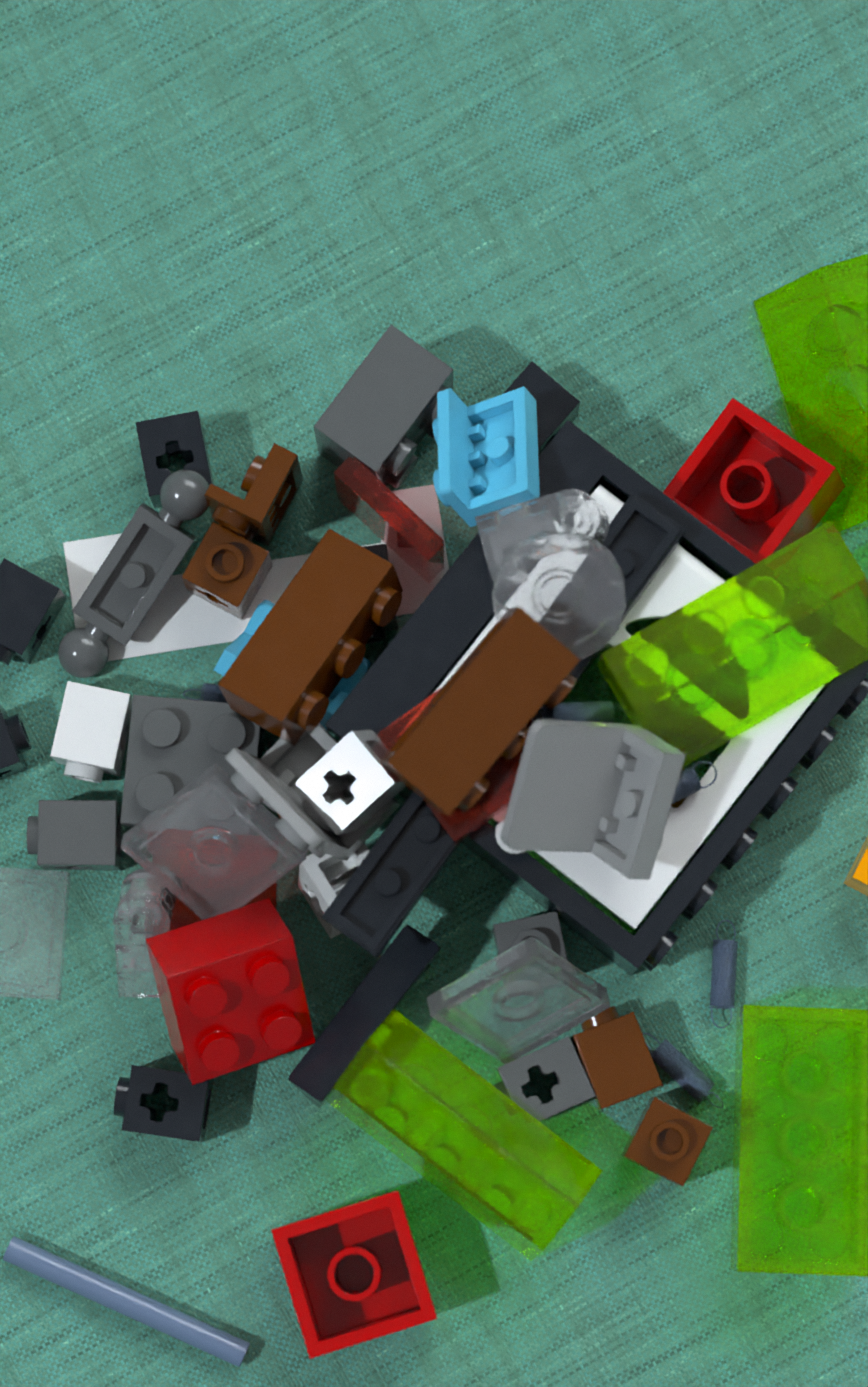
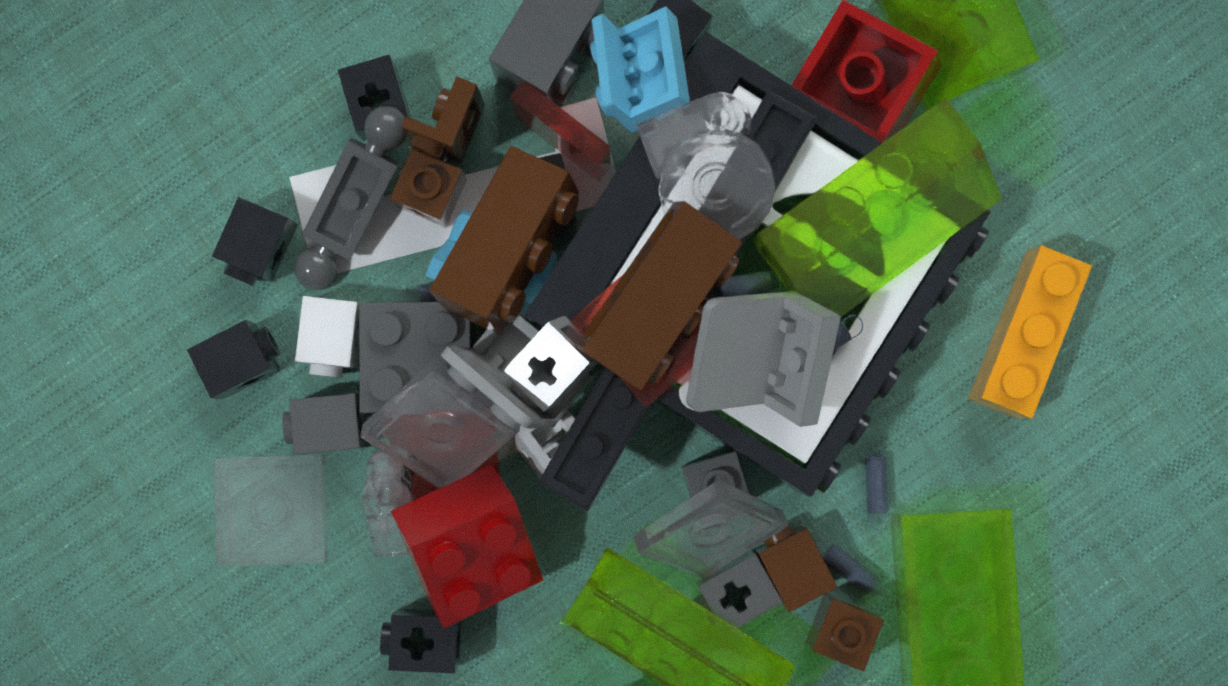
camera: 10 degrees left, 5 degrees up
(363, 1013) = (581, 553): black slope -> none

